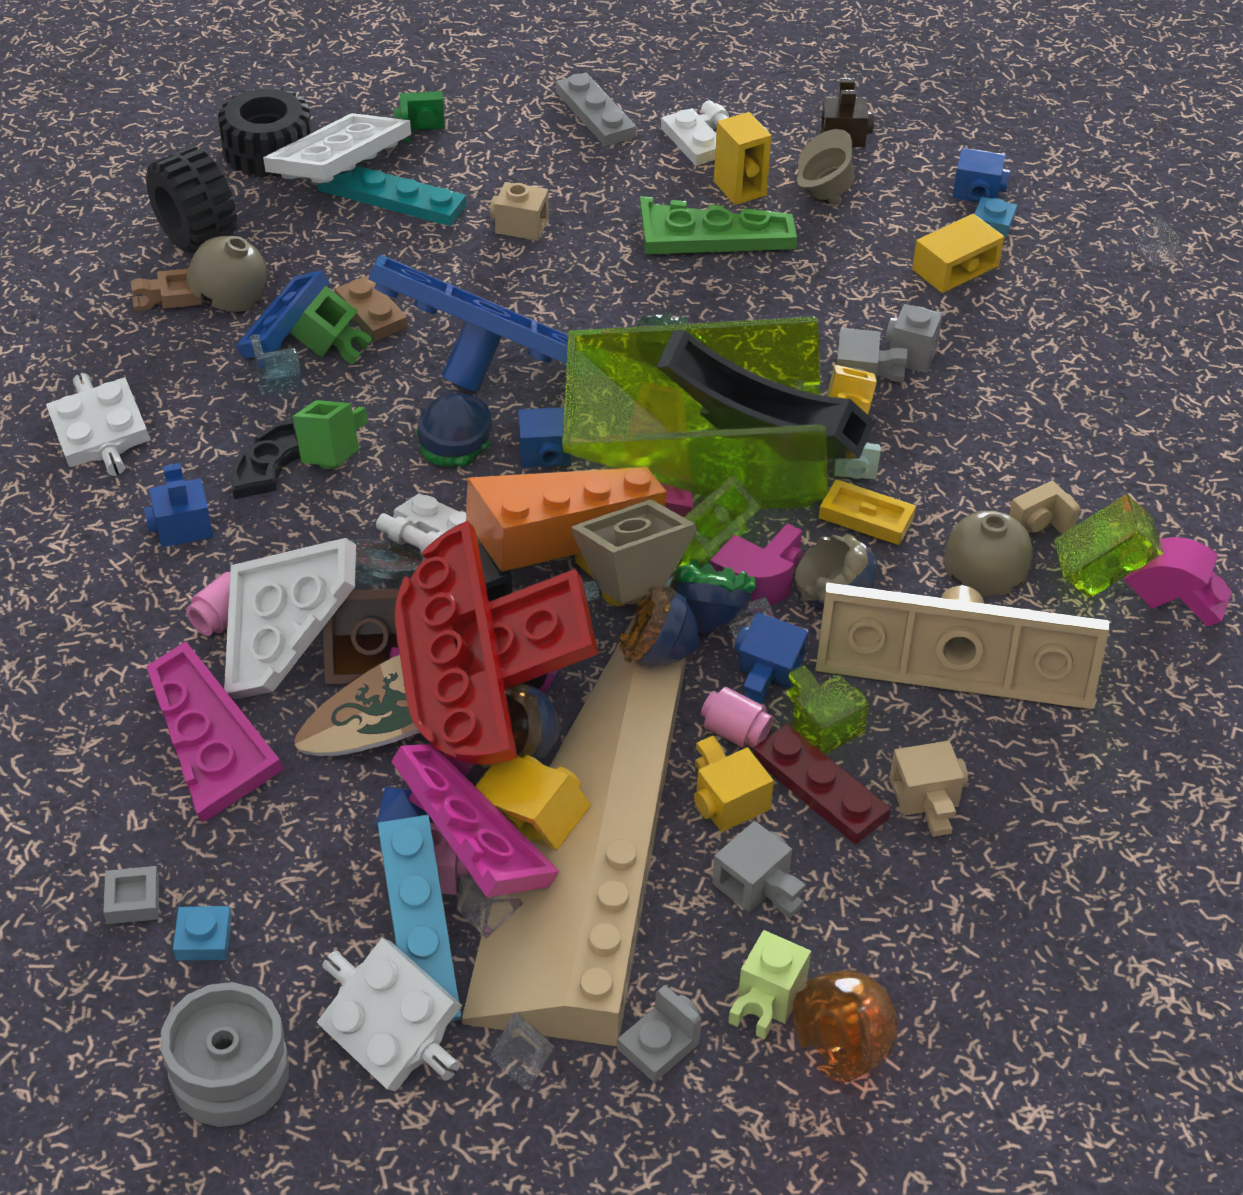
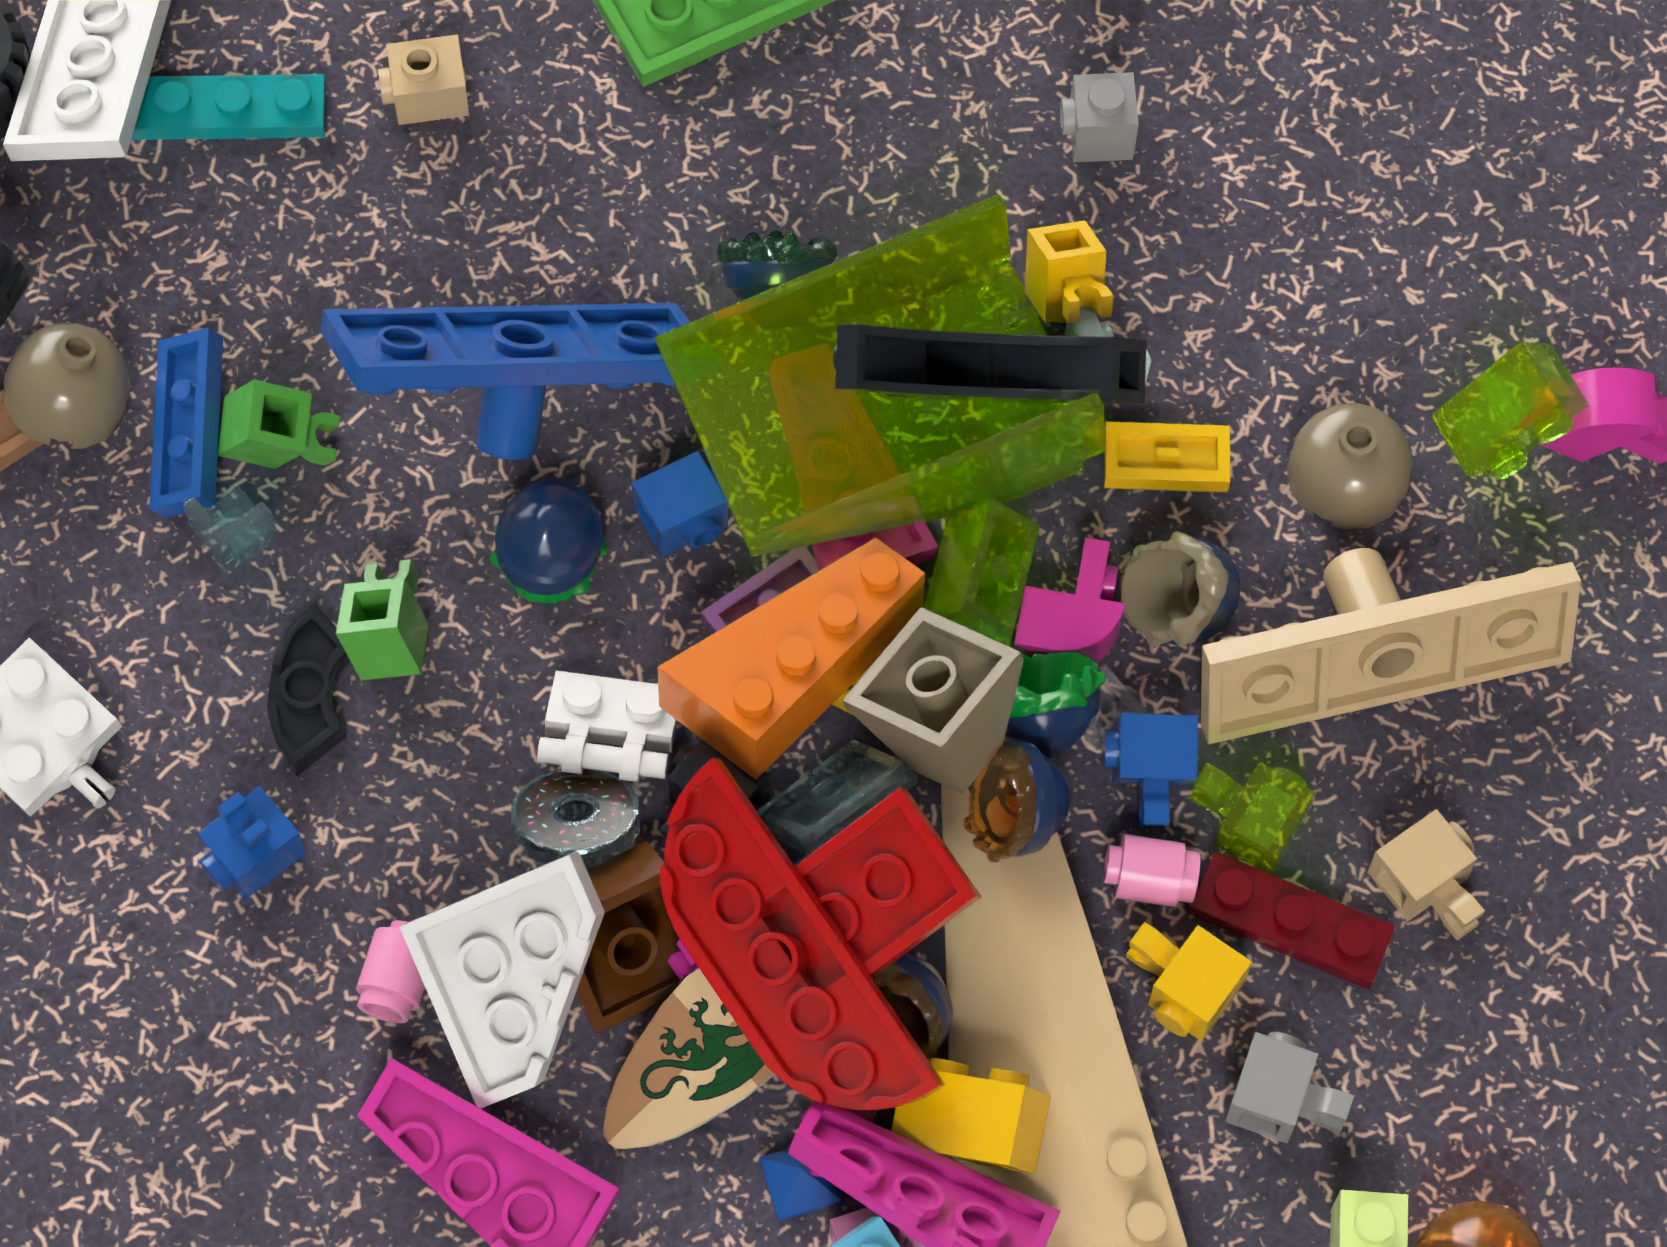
camera: 25 degrees left, 20 degrees up
(376, 311) = (292, 350): medium nougat plate -> none
(861, 352) = (1045, 187): light grey brick -> none
(1045, 506) = (1397, 355): tan bracket -> none

